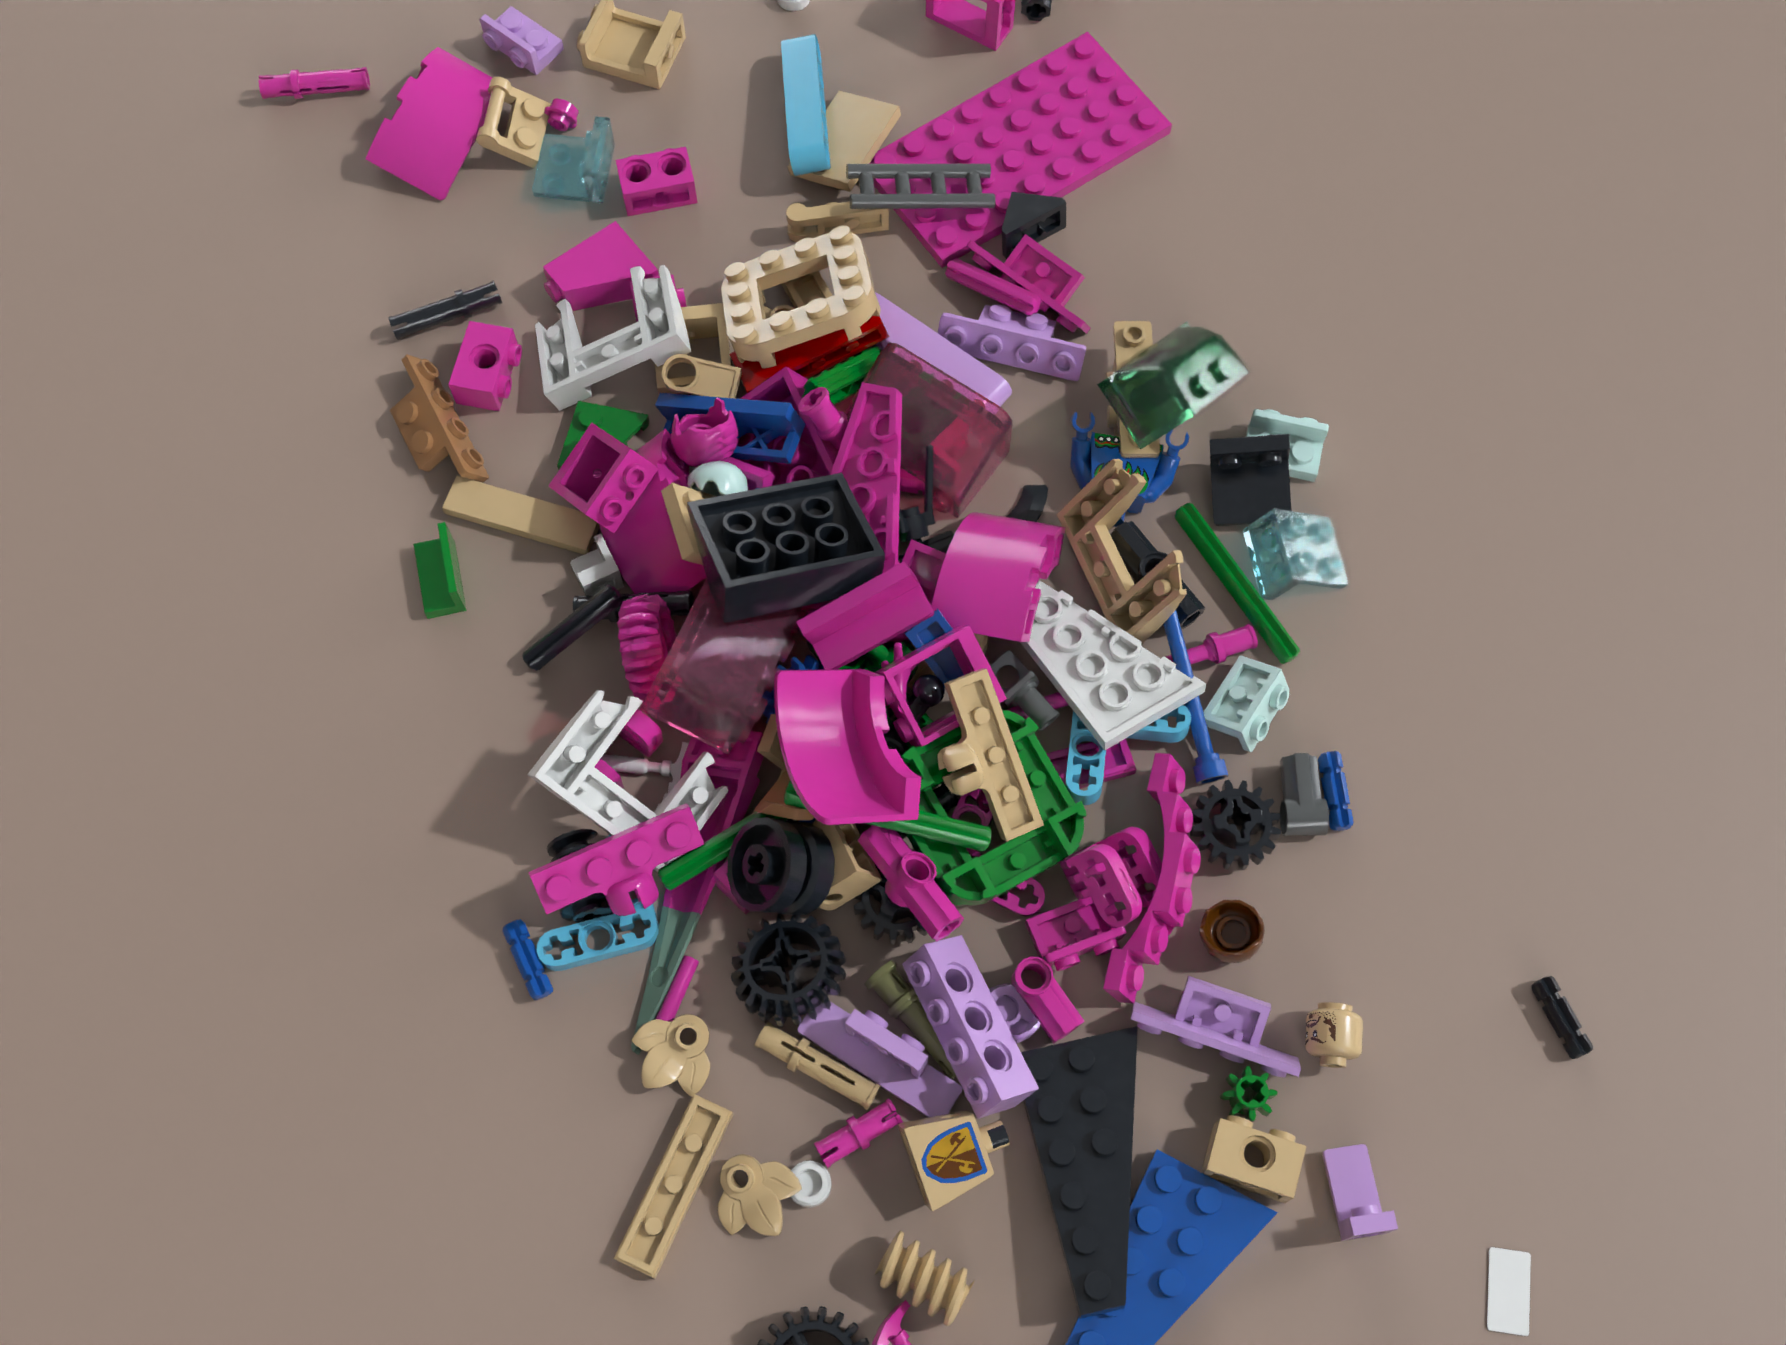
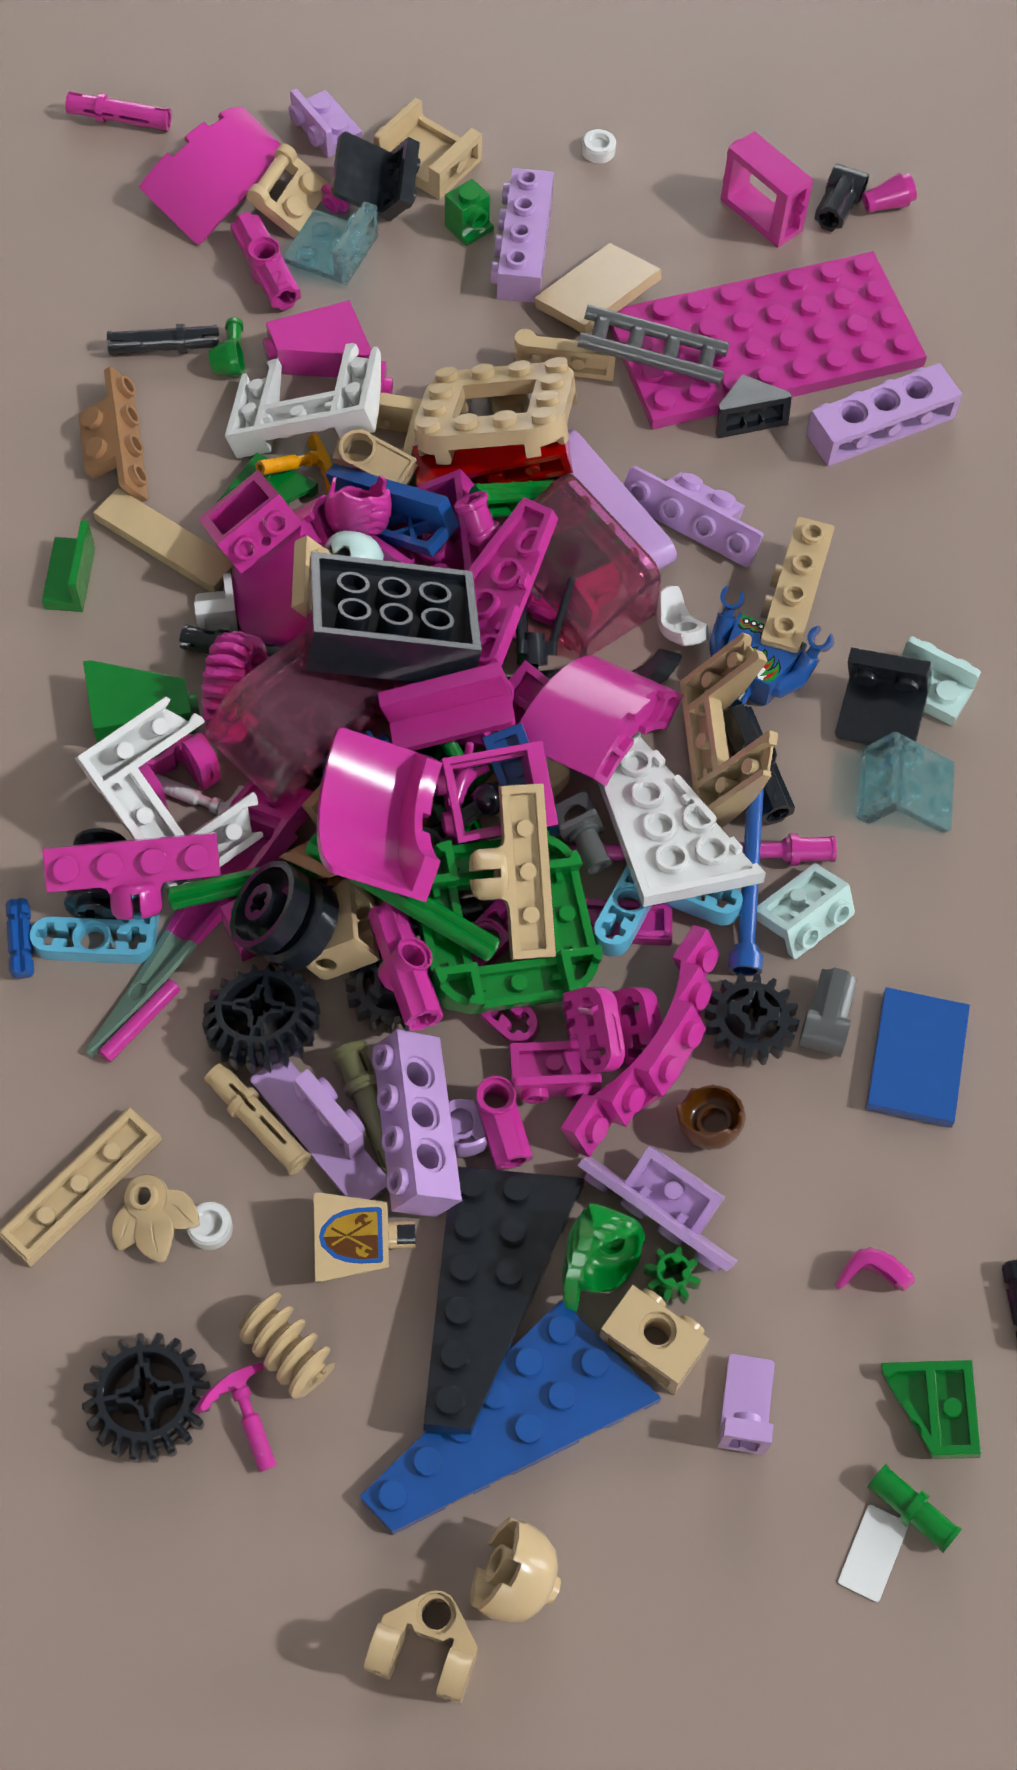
camera: 15 degrees right, 5 degrees down
(482, 347) = (180, 398): dark pink brick -> none
(514, 309) = (228, 356): none -> green bar
(516, 201) = (265, 261): none -> dark pink piece
(553, 690) = (123, 693): none -> green slope
(572, 627) = (177, 647): black axle -> none
(595, 84) = (375, 175): none -> black bracket
(637, 387) = (317, 456): none -> light orange piece
(656, 181) = (403, 277): dark pink brick -> none
(670, 1058) = (119, 1067): tan plate -> none
(695, 97) = (468, 212): none -> green brick
(756, 104) = (524, 235): none -> lavender brick
(805, 105) = (570, 245): medium azure beam -> none
(858, 1133) = (272, 1192): dark pink pin -> none
(993, 287) = (693, 456): dark pink axle -> none
(1034, 456) = (676, 621): none -> white hair
(1040, 273) = (744, 456): dark pink bracket -> none
(1152, 193) = (883, 414): none -> lavender brick
(1172, 381) = (832, 584): clear green windscreen -> none
(1178, 1096) = (600, 1252): none -> green hair
(1237, 583) = (837, 797): green axle -> none
(1334, 1034) = (779, 1244): tan head -> none
(1335, 790) = (866, 1019): blue axle -> none
(1393, 813) = (918, 1057): none -> blue tile
(1427, 1019) = (881, 1263): none -> dark pink hair
(1522, 1136) = (939, 1404): none -> green wing
(1533, 1240) = (914, 1508): none -> green pin

